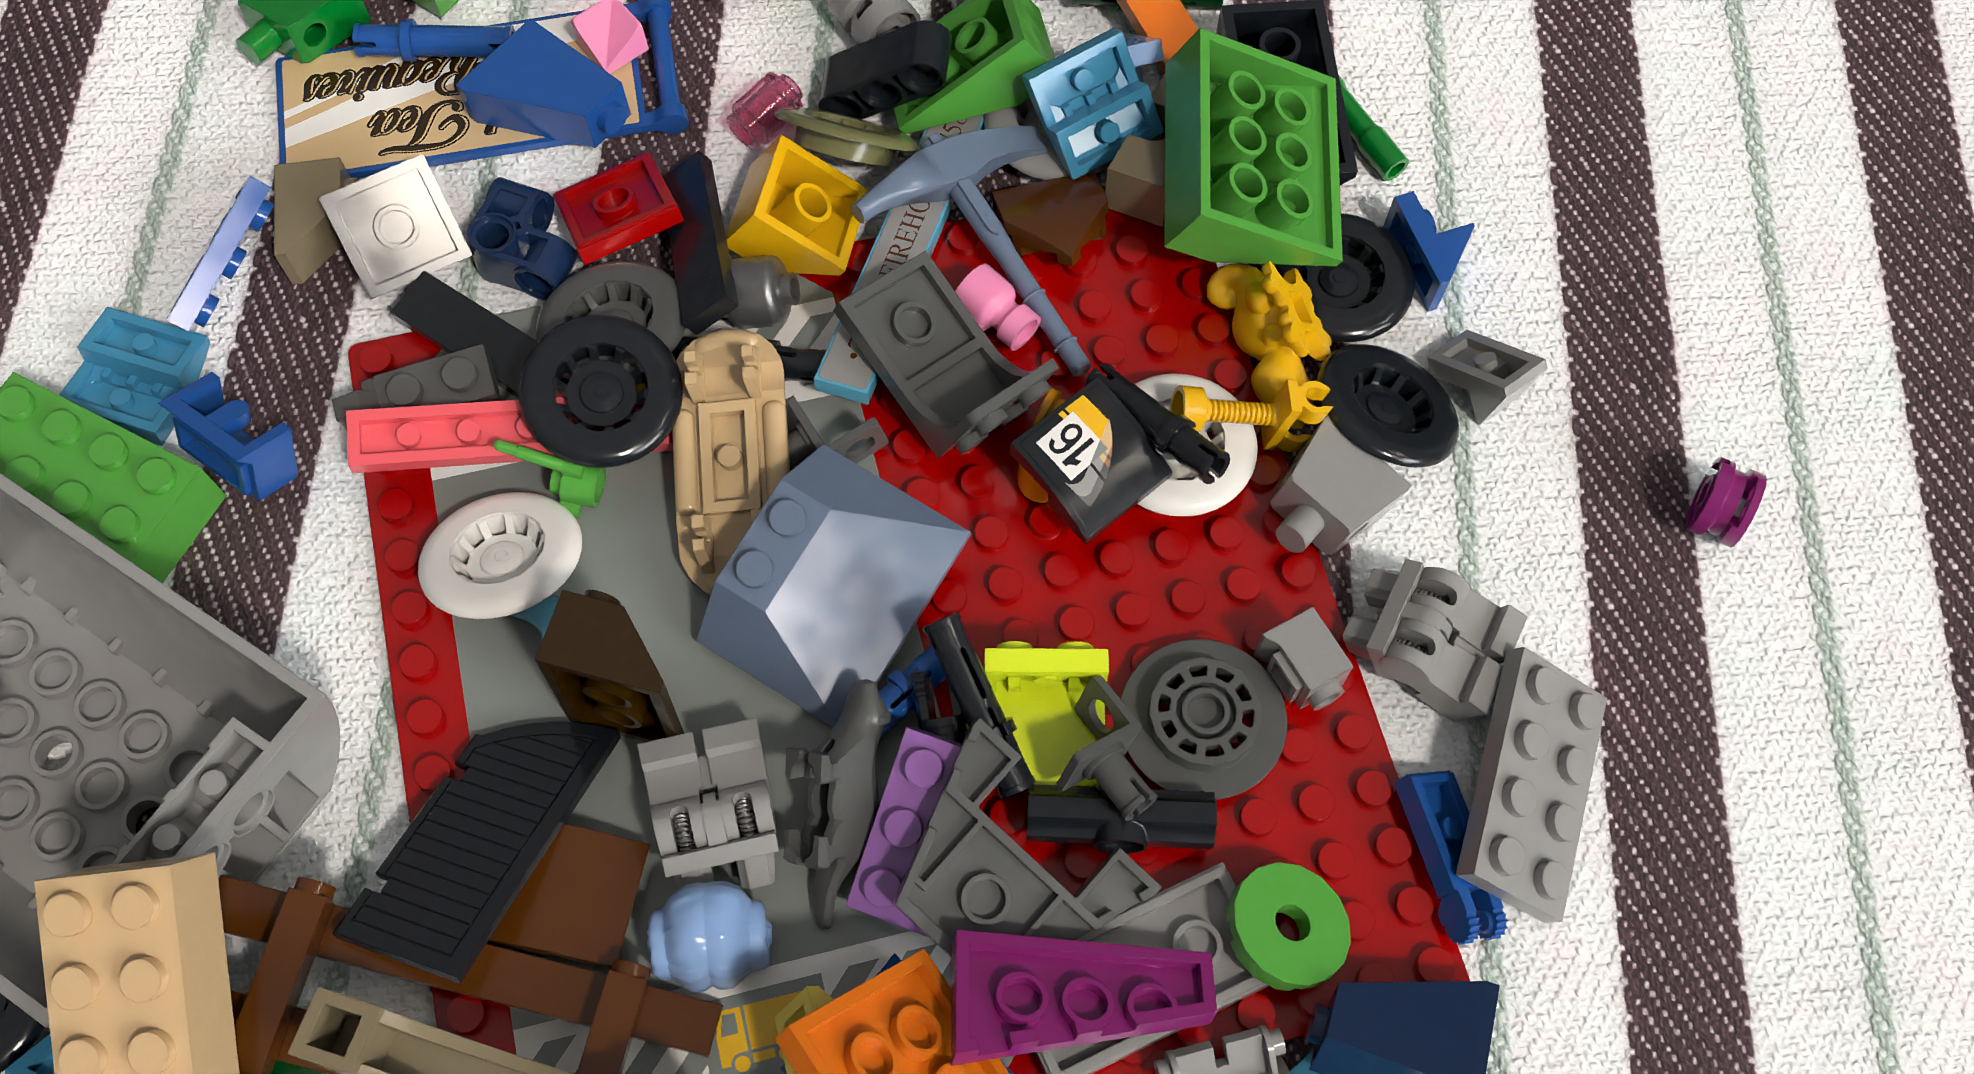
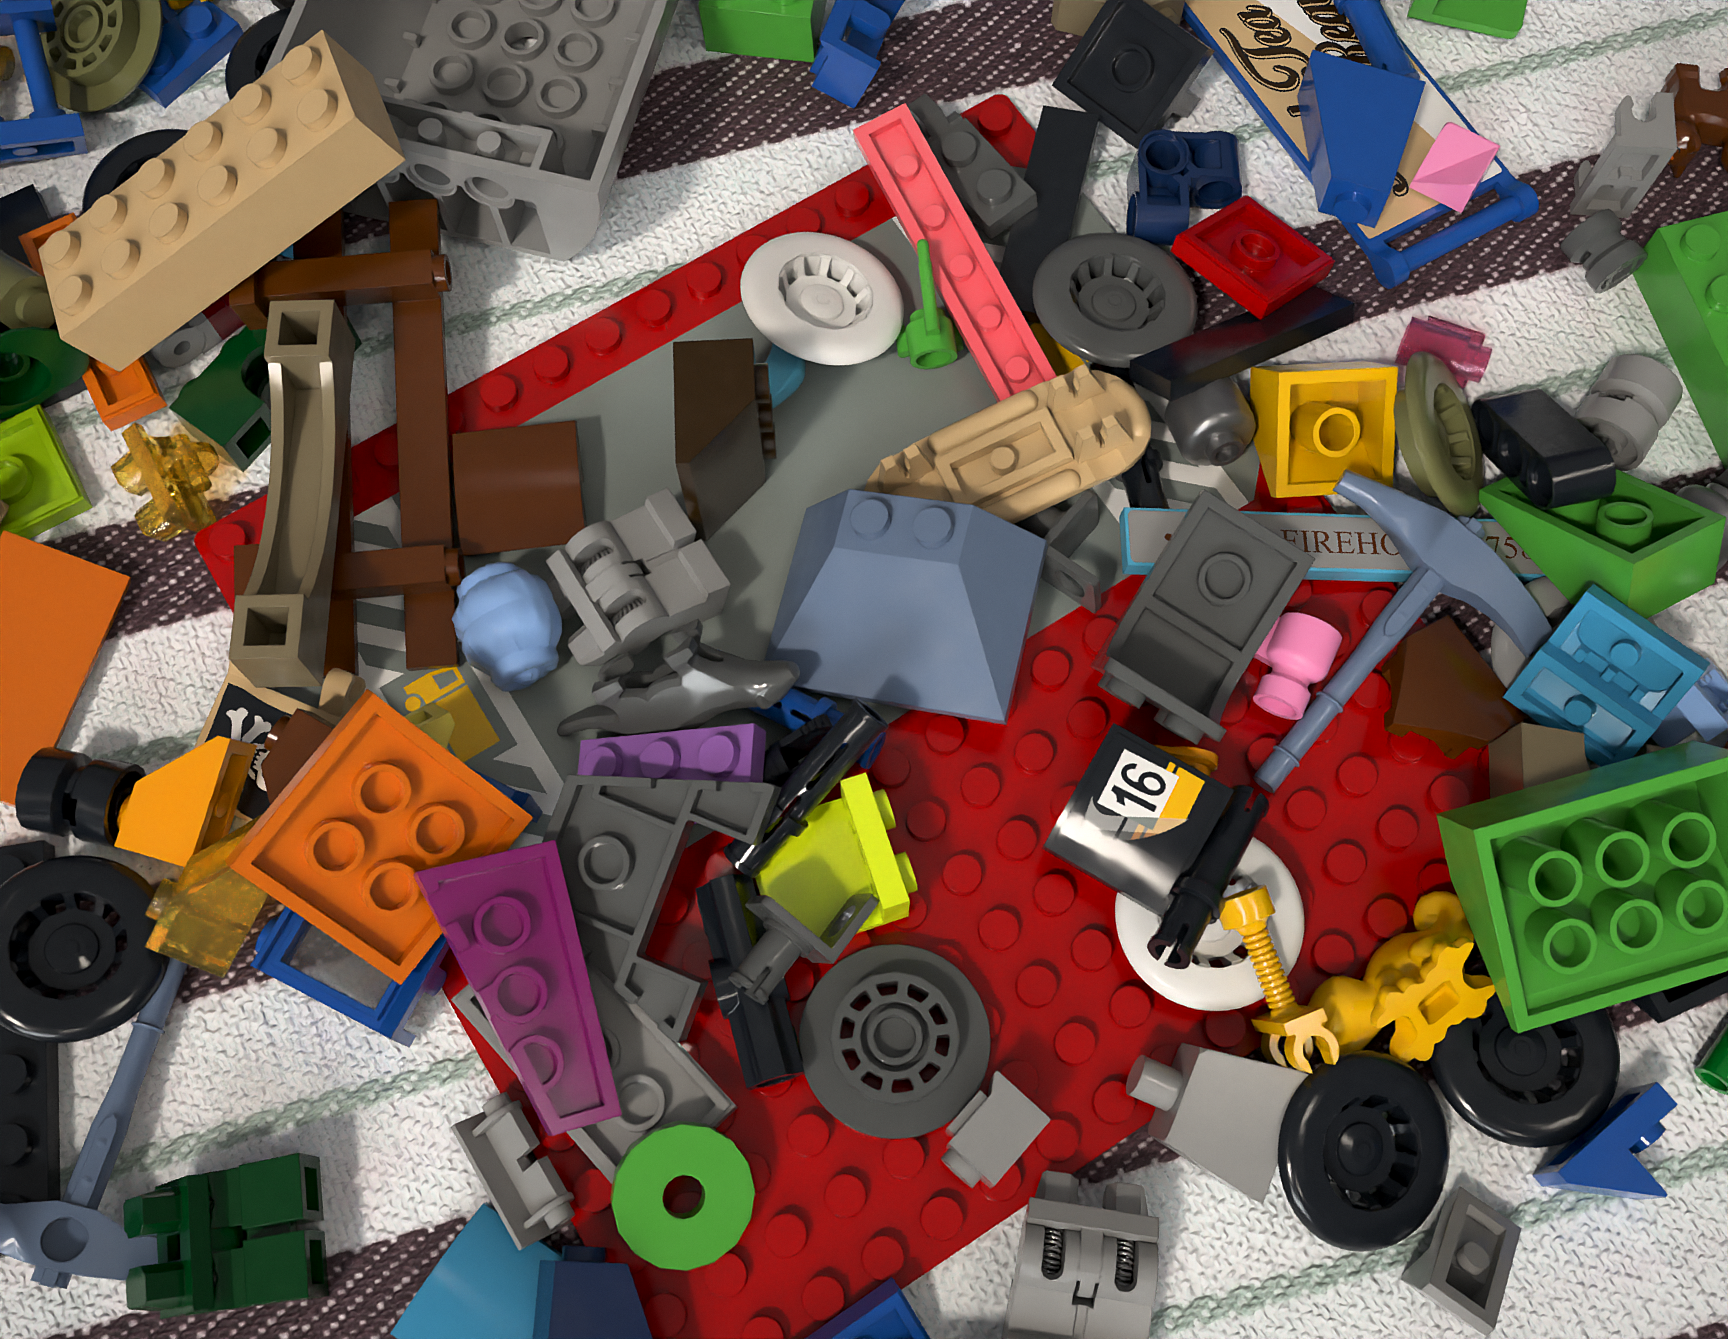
camera: 75 degrees right, 5 degrees up
(476, 845) = (532, 391): black piece -> none
(600, 392) = (1019, 312): black wheel -> none

